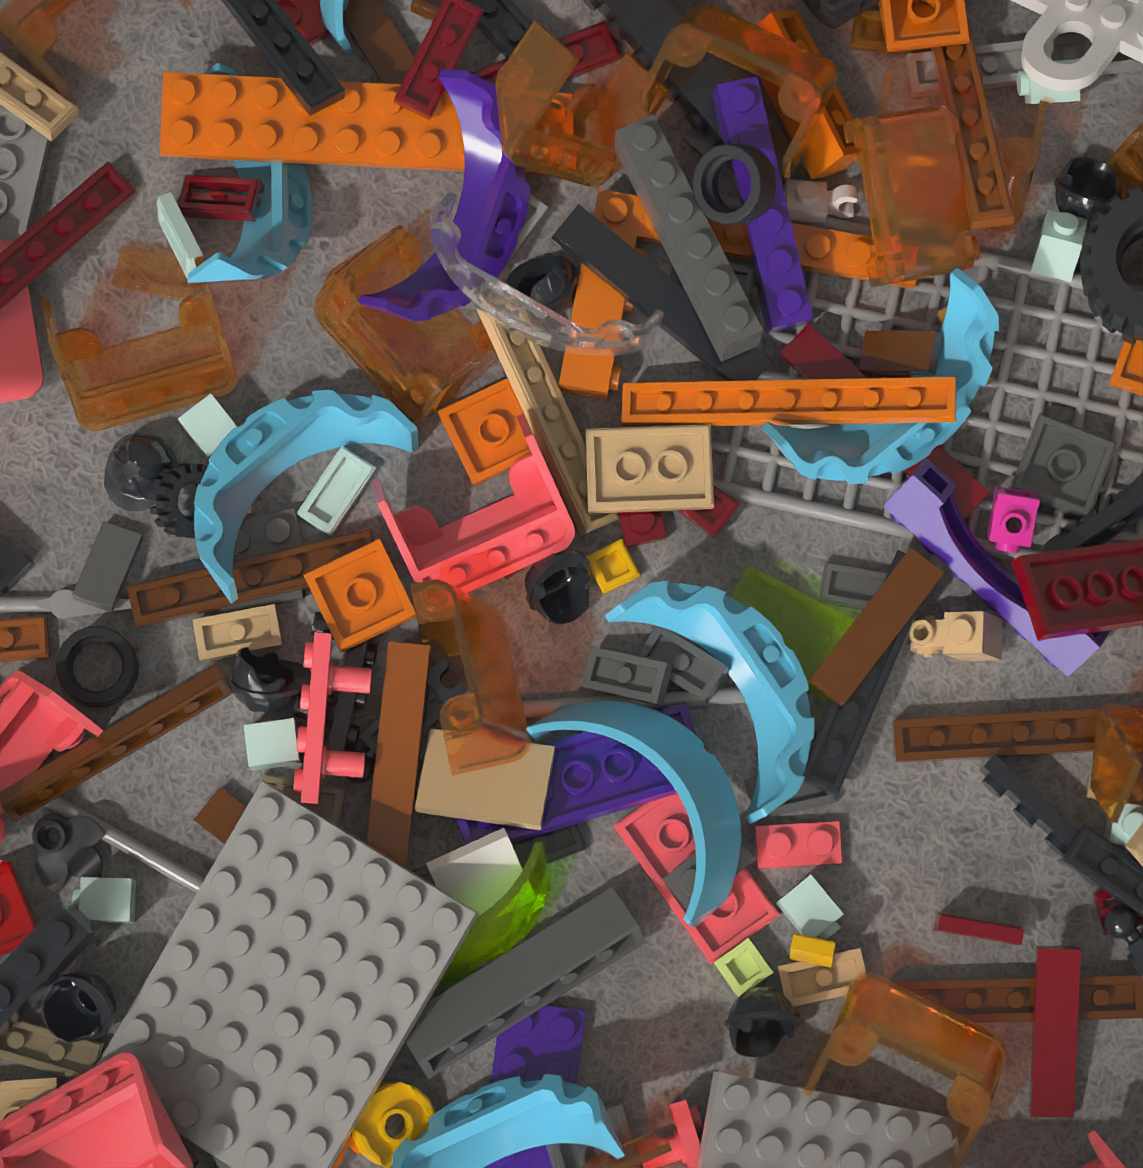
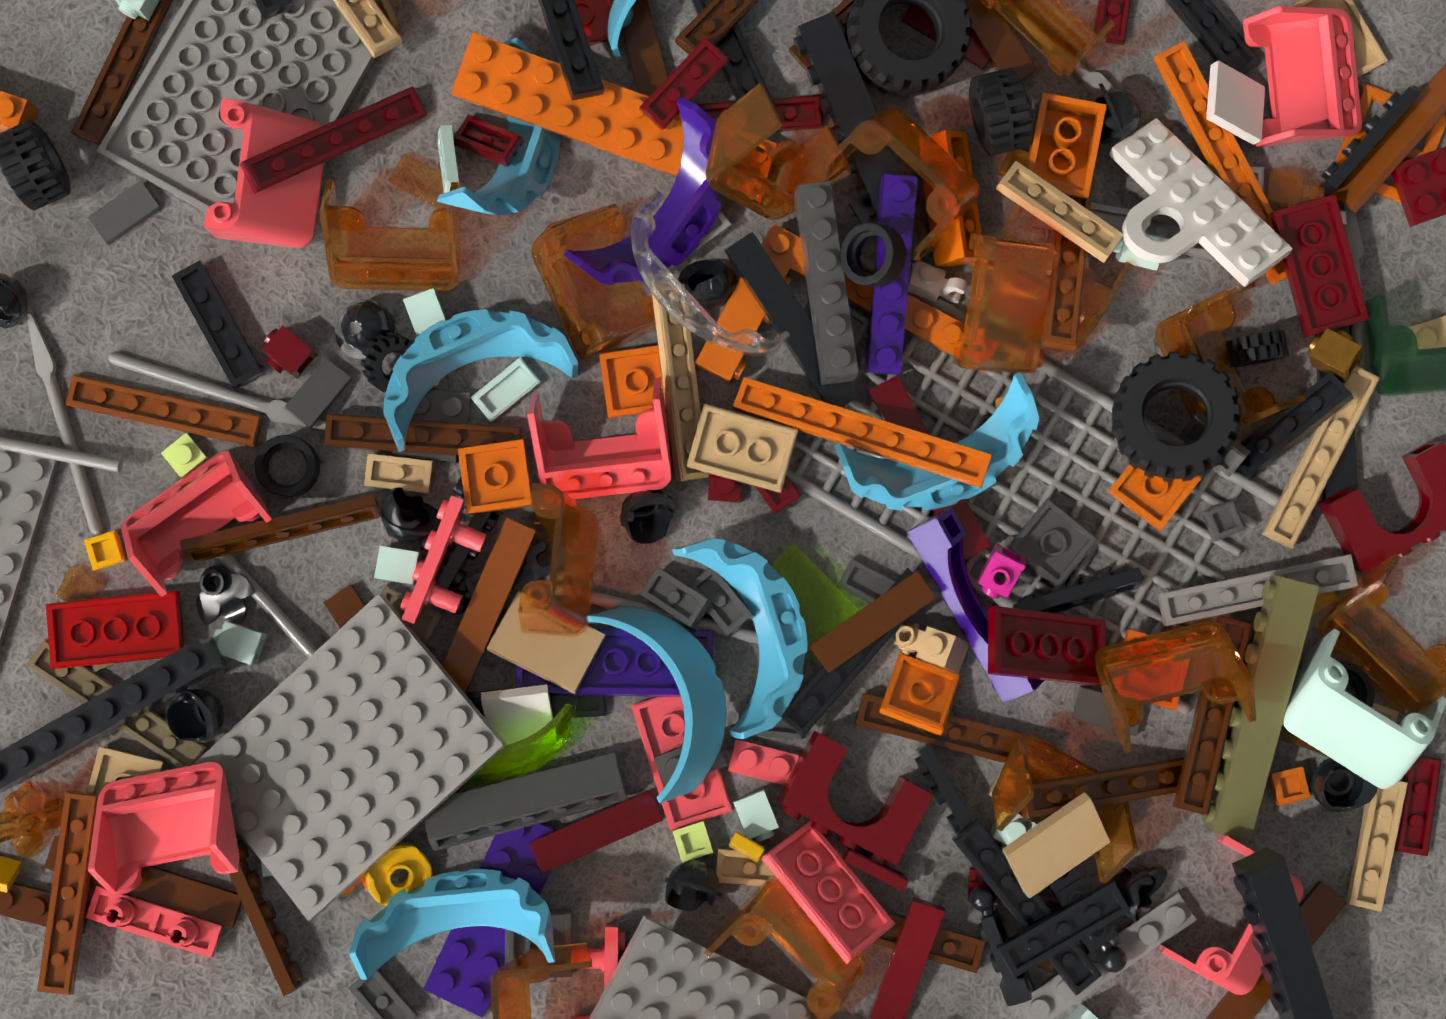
camera: 10 degrees right, 5 degrees up
(55, 527) = (287, 352): none -> dark red brick
(613, 567) = (692, 511): yellow tile -> none
(619, 993) = (595, 831): none -> dark red tile
(867, 865) = (883, 835): none -> dark red arch
(900, 352) = (958, 420): reddish brown tile -> none
(930, 972) = (828, 891): none -> coral tile
(940, 66) = (1059, 211): none -> tan plate
(962, 698) = (920, 693): none -> orange tile
(1059, 245) = (1104, 375): light aqua brick -> none
(1085, 187) = (1139, 339): black piece -> none

